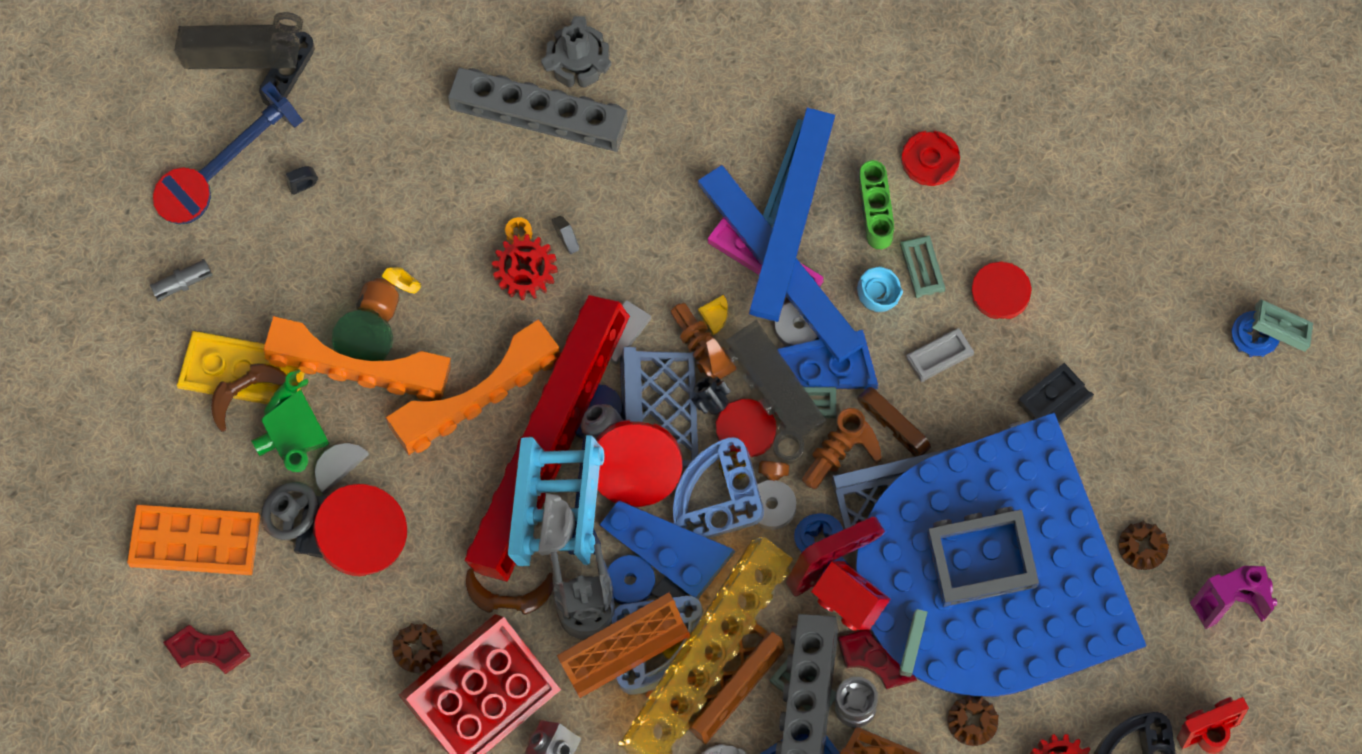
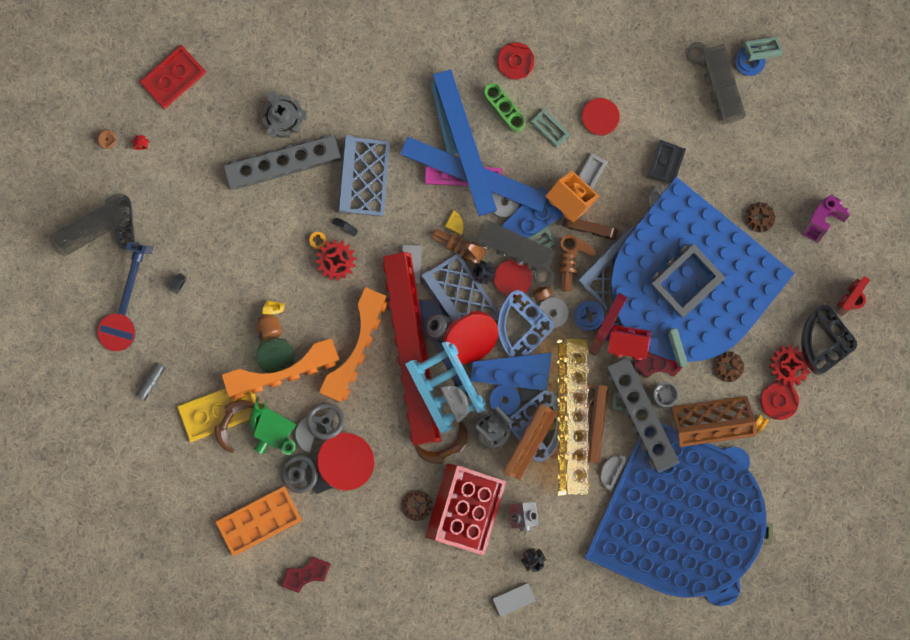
camera: 30 degrees left, 15 degrees up
(370, 474) = (327, 428): none -> dark grey piece
(608, 176) = (347, 171): none -> sand blue fence
(875, 283) = (531, 154): medium azure hair -> none
(894, 362) = (572, 196): none -> orange brick
(1198, 335) = (721, 80): none -> clear smoke hinge

